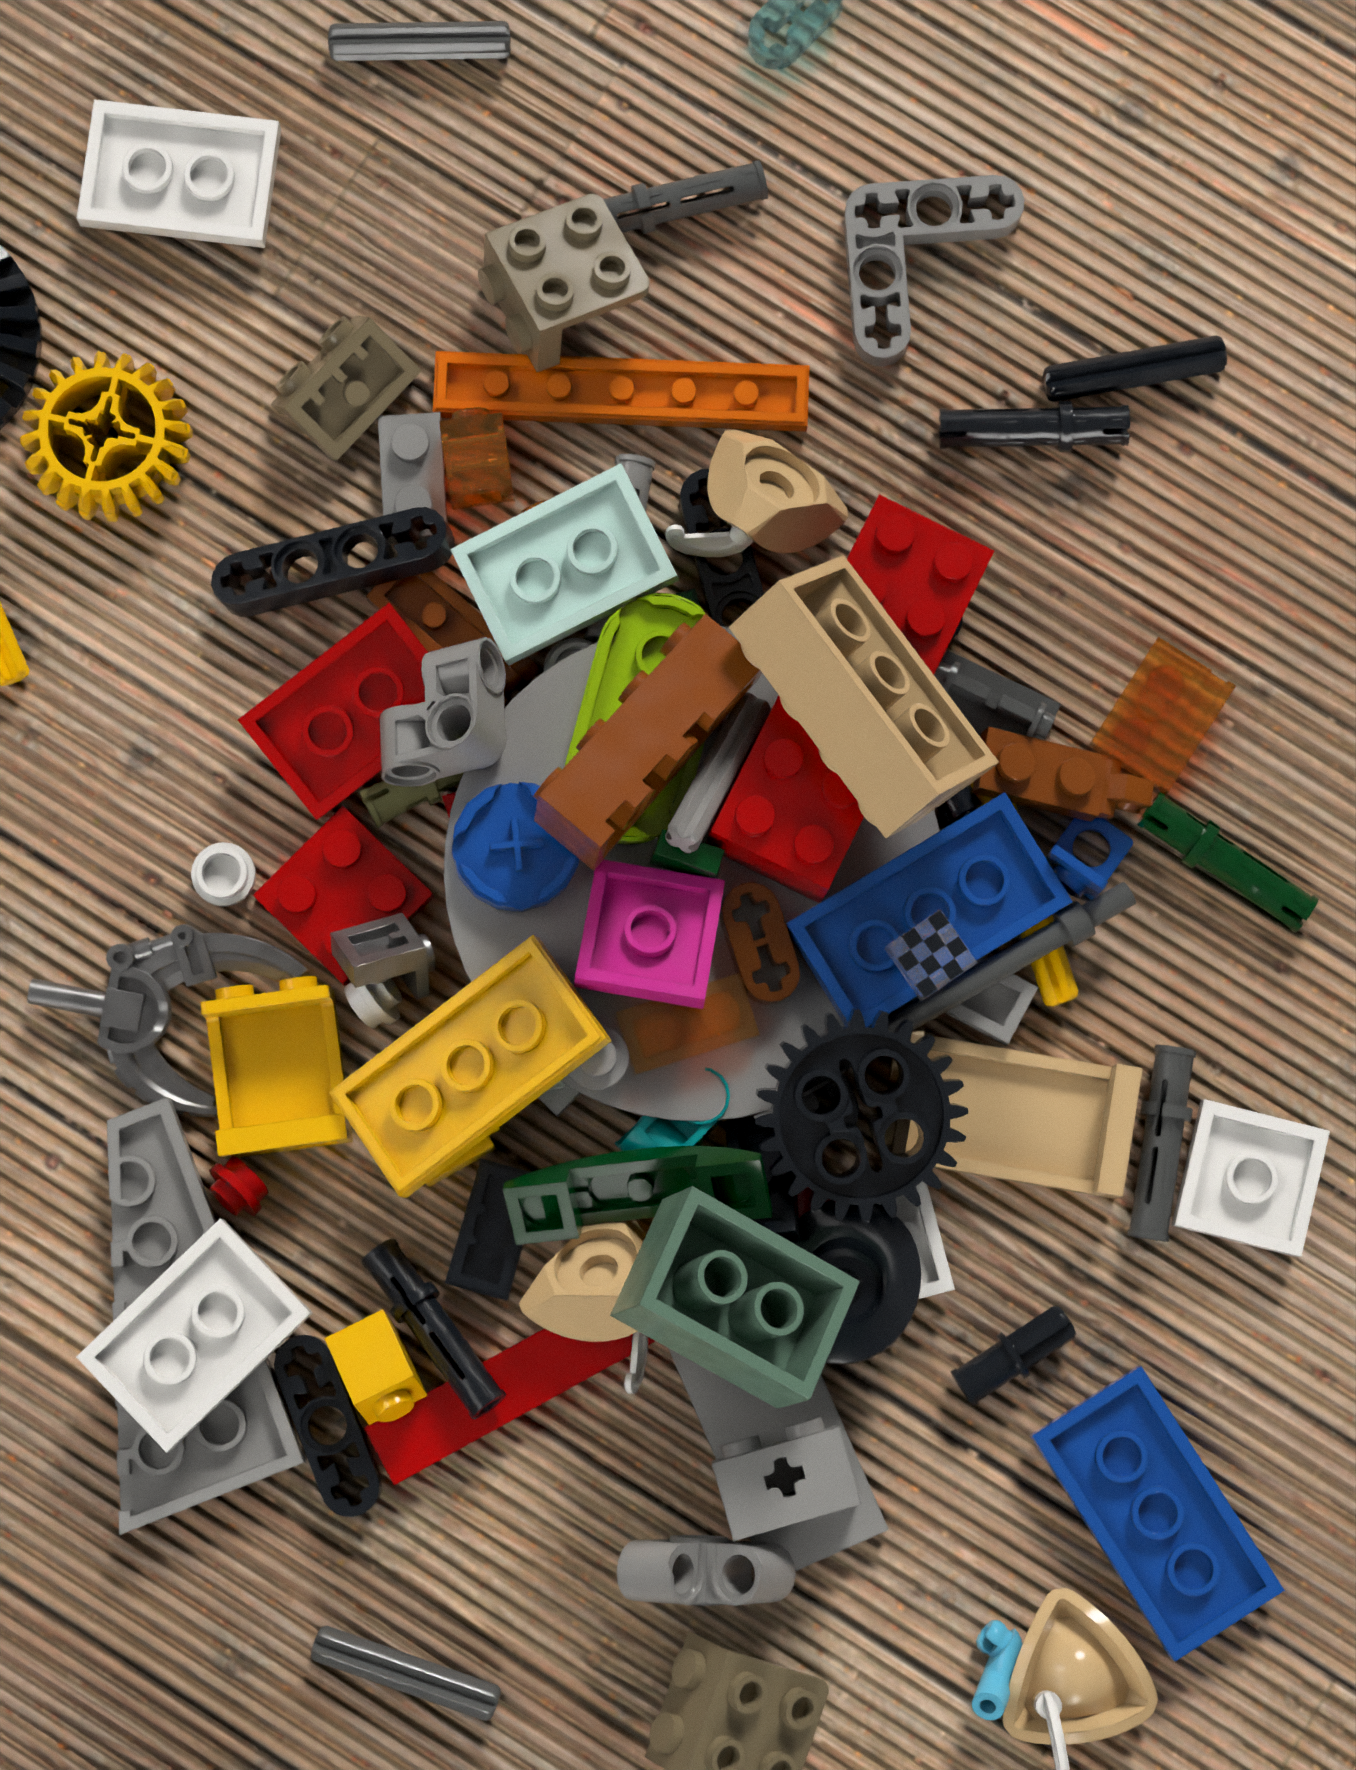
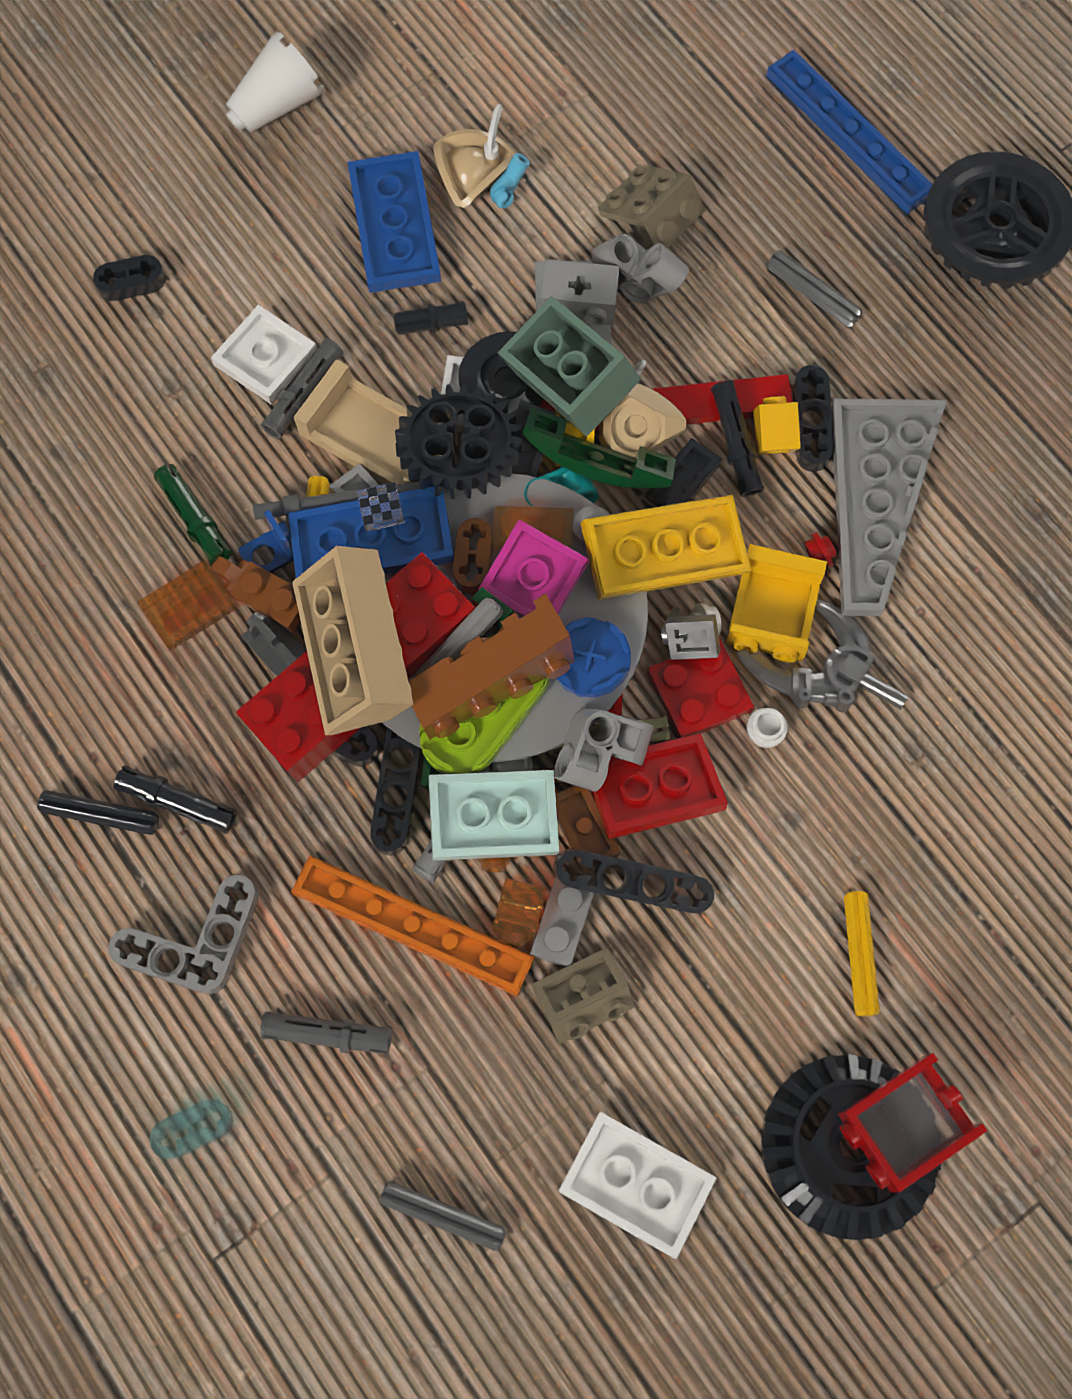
camera: 155 degrees left, 10 degrees down
(111, 411) = (762, 1032): yellow gear -> none
(194, 1335) = (872, 474): white plate -> none
(558, 274) = (417, 1003): dark tan bracket -> none
(765, 499) = (356, 813): tan hat -> none

